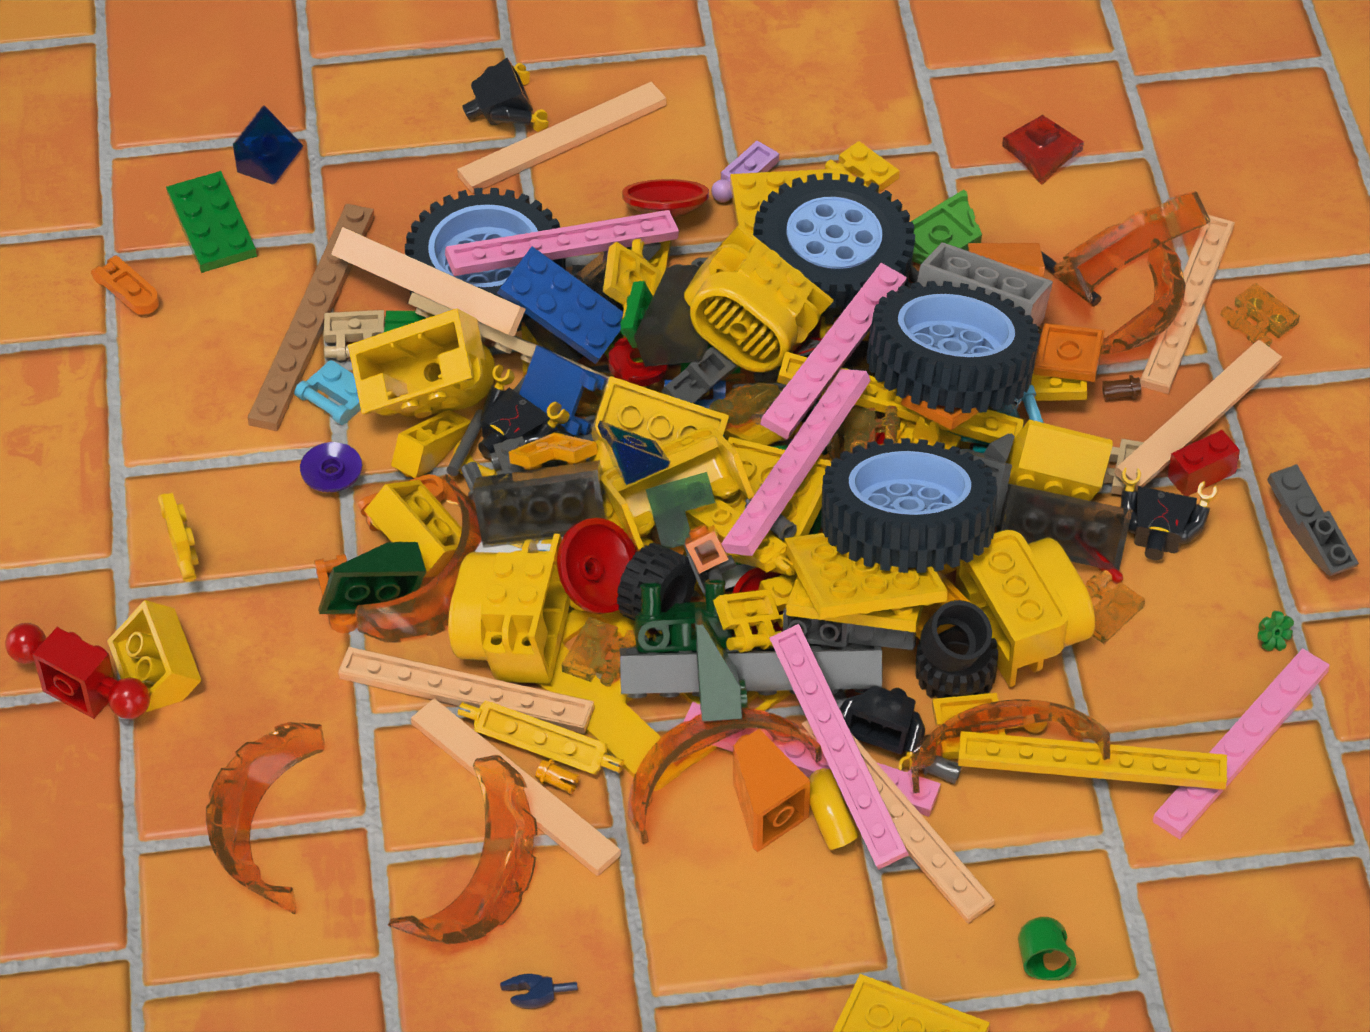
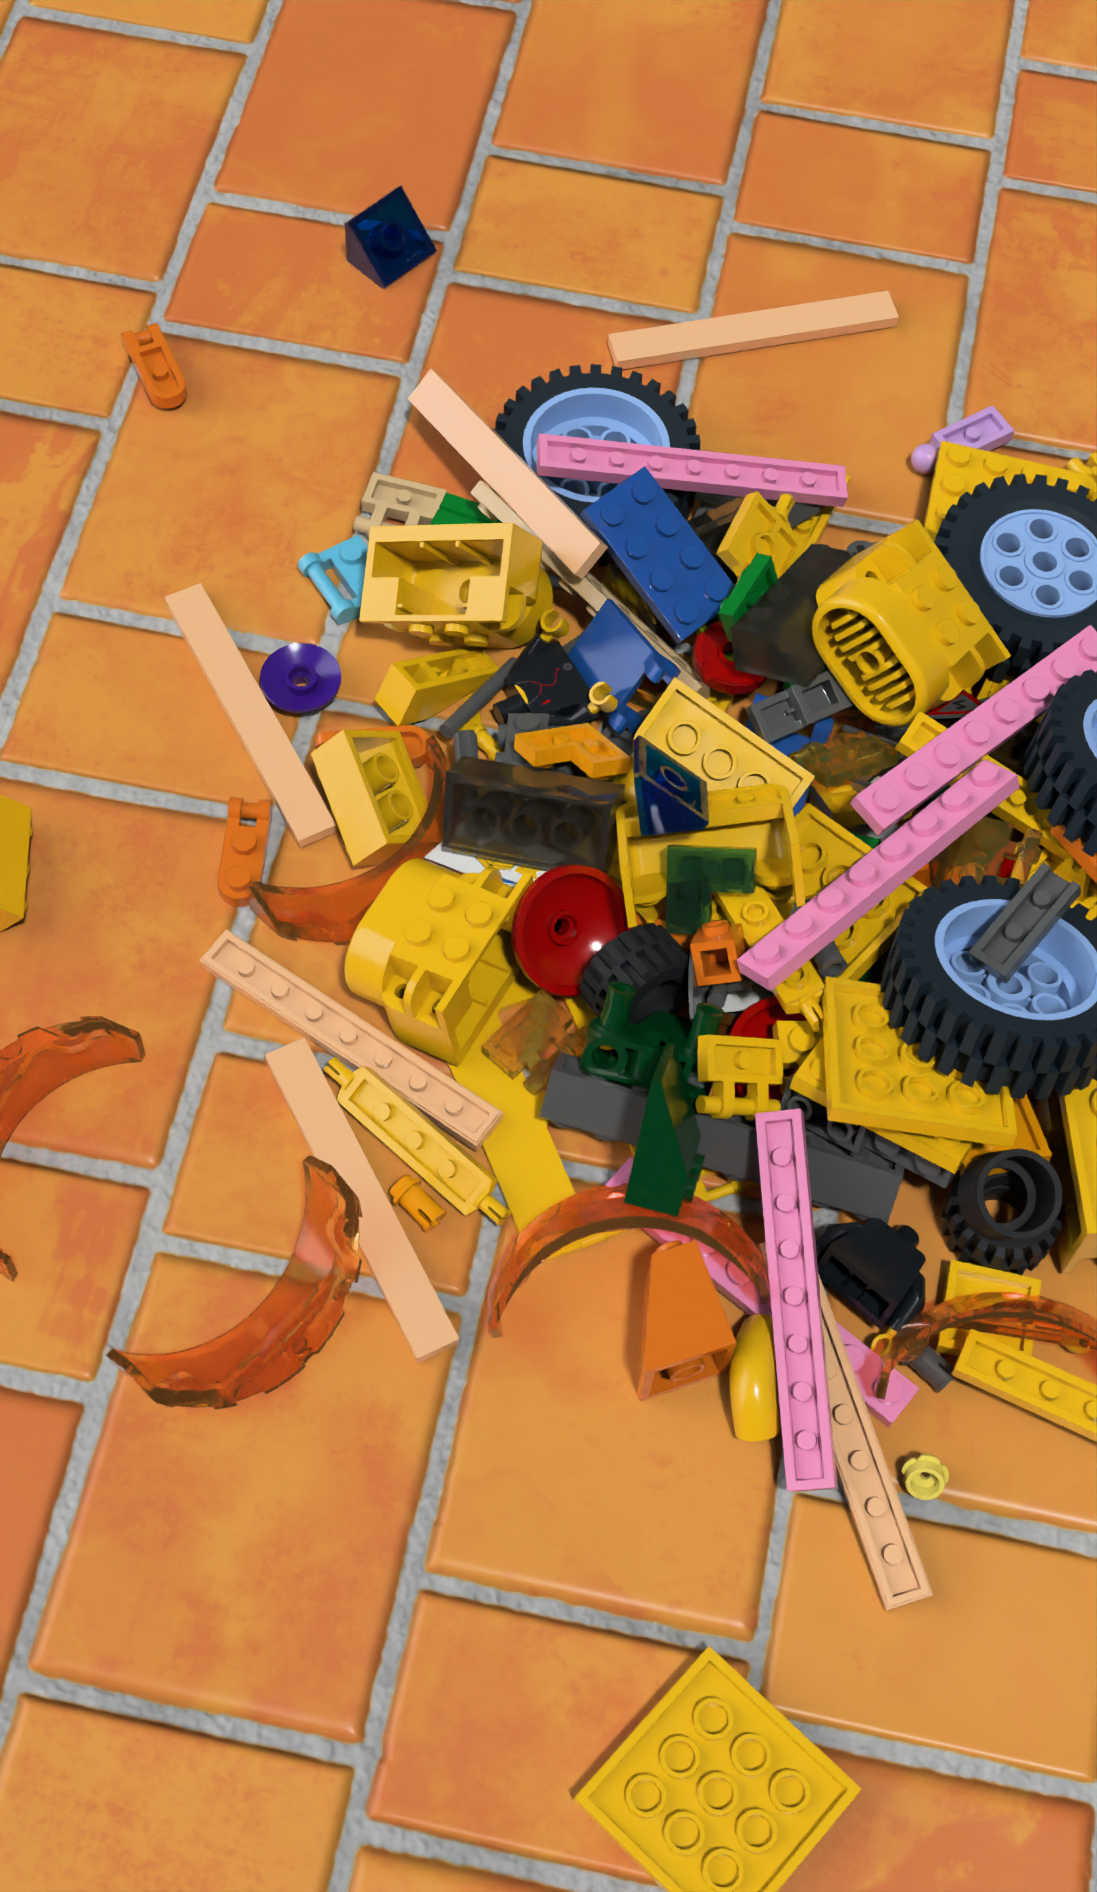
camera: 15 degrees right, 10 degrees up
(180, 535) = (72, 715): yellow plate -> none
(211, 221) = (289, 314): green plate -> none
(291, 494) = (251, 716): none -> light nougat tile
(306, 325) = (347, 482): medium nougat plate -> none
(374, 578) = (284, 851): dark green slope -> none
(503, 97) = (698, 258): black torso -> none
(540, 990) = (278, 1511): dark blue hand -> none
(665, 194) = (851, 444): red dish -> none
(904, 462) = (1024, 923): none -> dark grey hinge
(969, 839) = (925, 1486): none -> light yellow plate
(1041, 937) = (978, 1688): green helmet -> none

